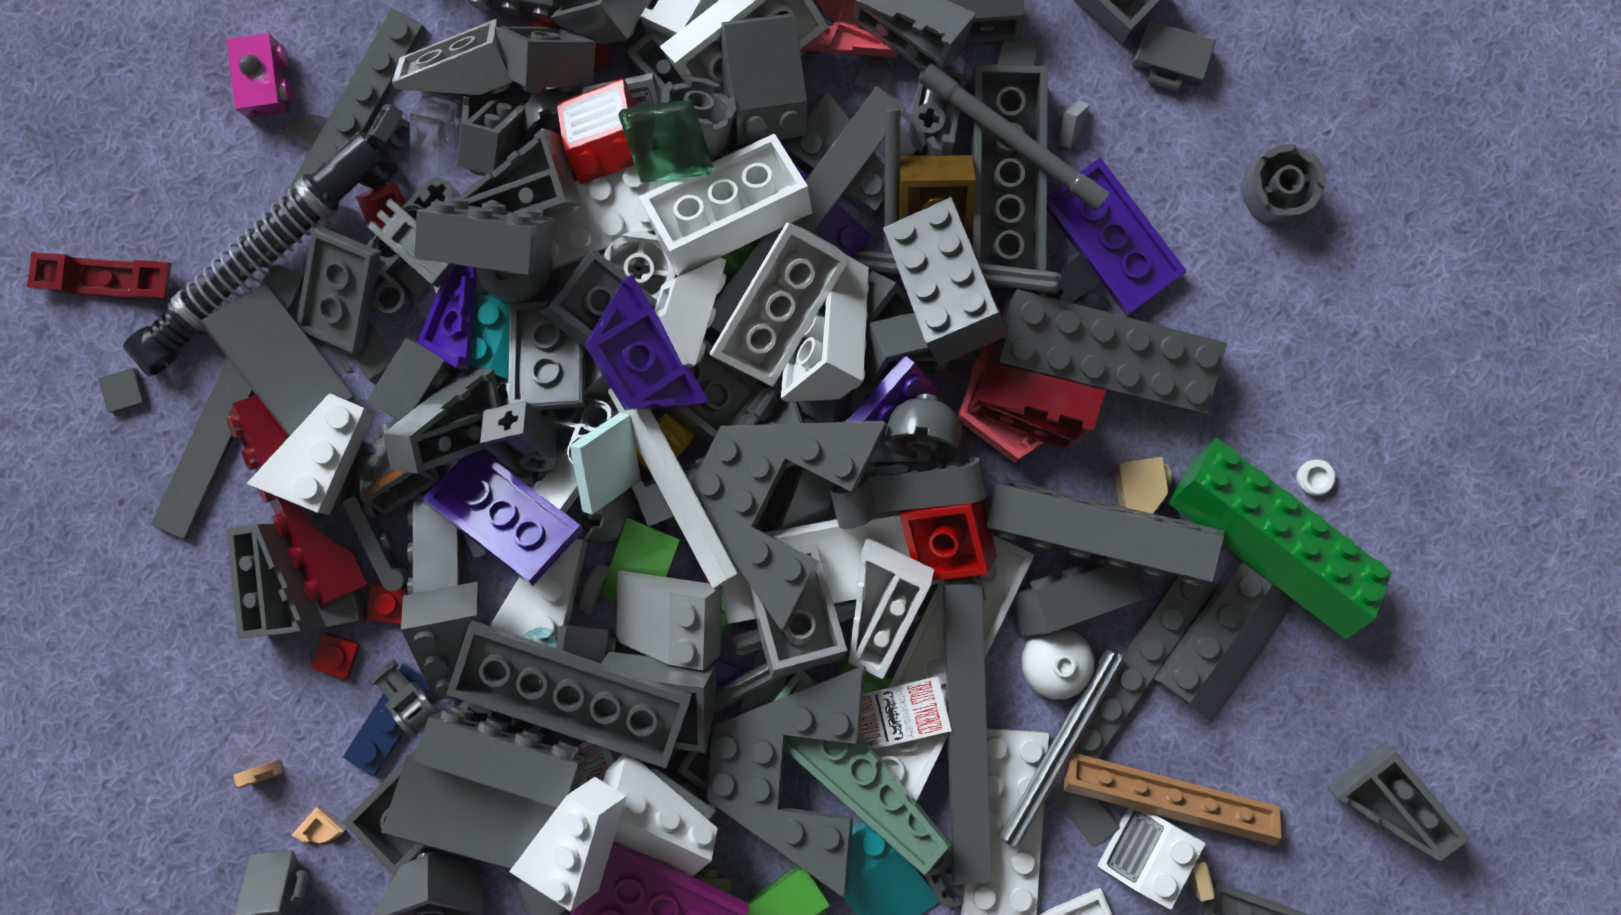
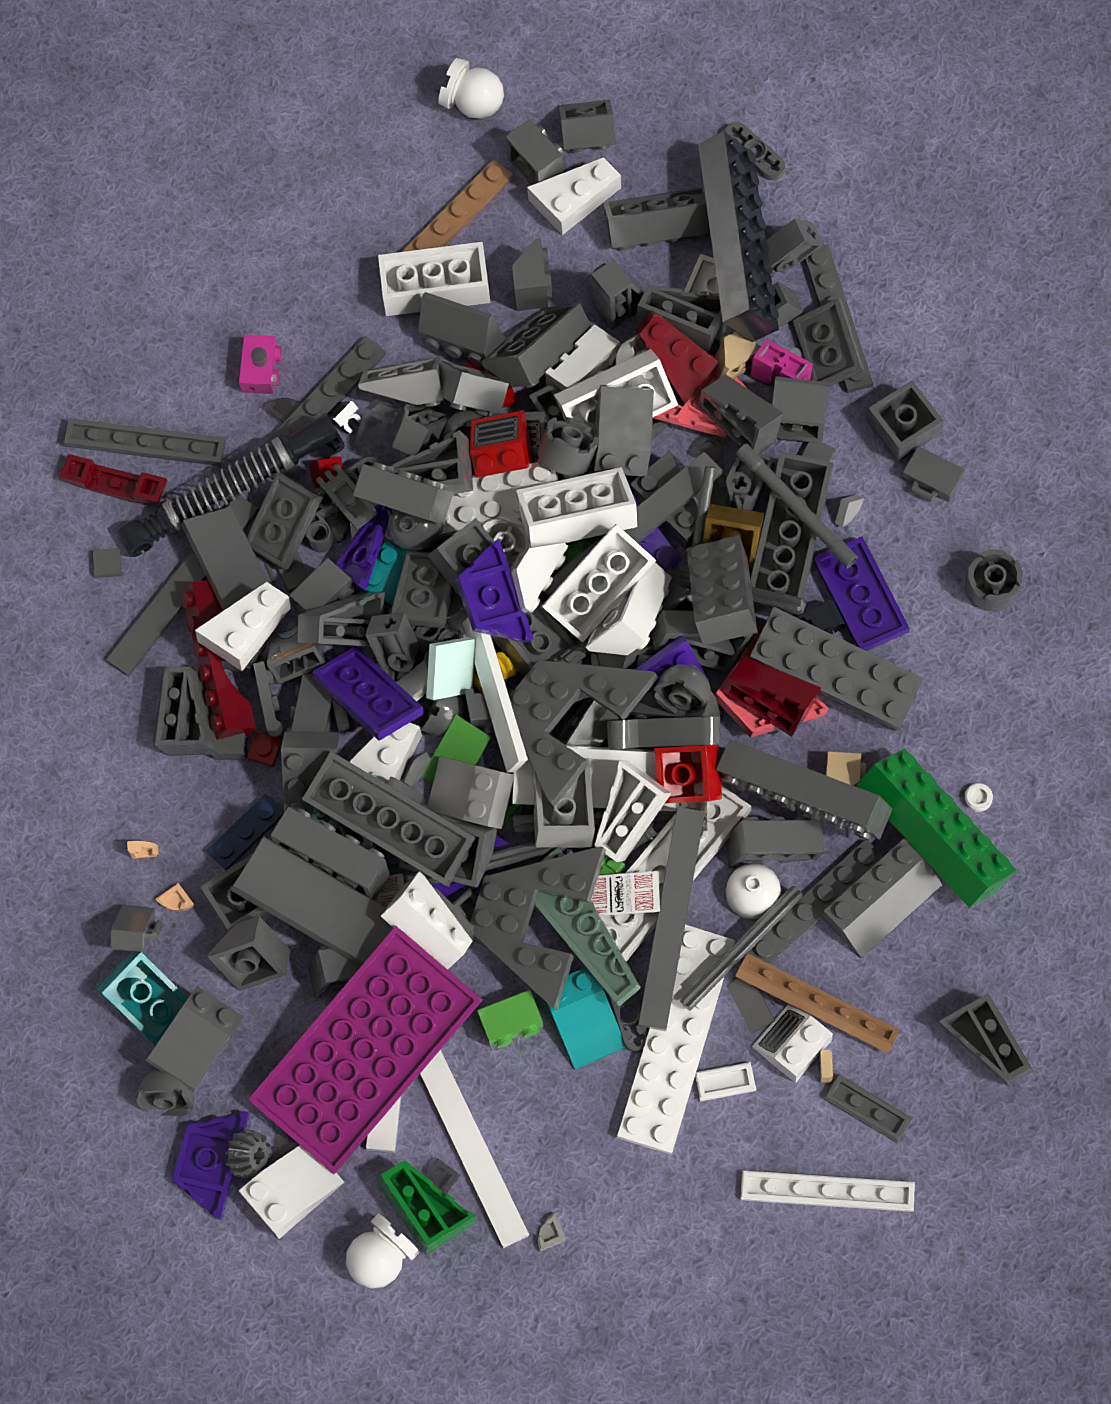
camera: 20 degrees right, 15 degrees down
(131, 214) = (145, 442): none -> dark grey plate
(335, 656) = (217, 779): red plate -> none
(405, 699) = (265, 815): dark grey connector -> none
(573, 845) = (370, 911): white wedge -> none
(666, 141) = (543, 455): clear green tile -> none

